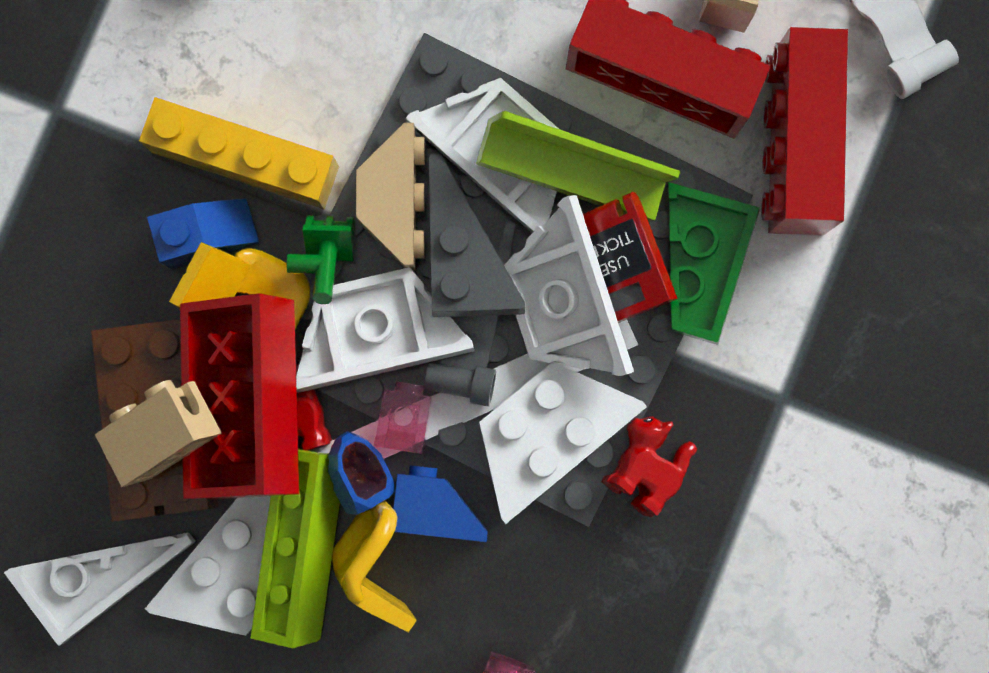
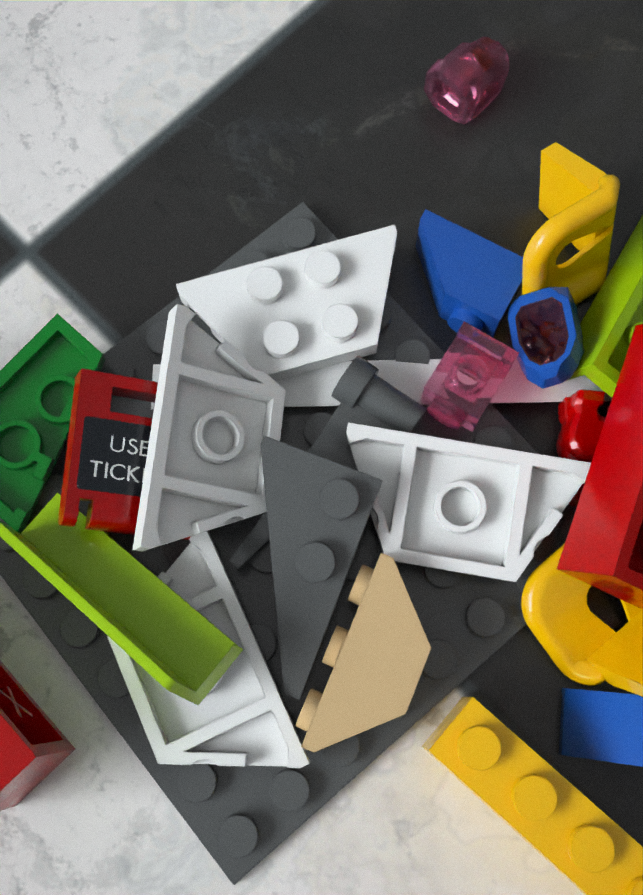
camera: 155 degrees left, 10 degrees down
(324, 245) = (476, 641): green arm -> none
(643, 468) = (217, 225): red animal -> none

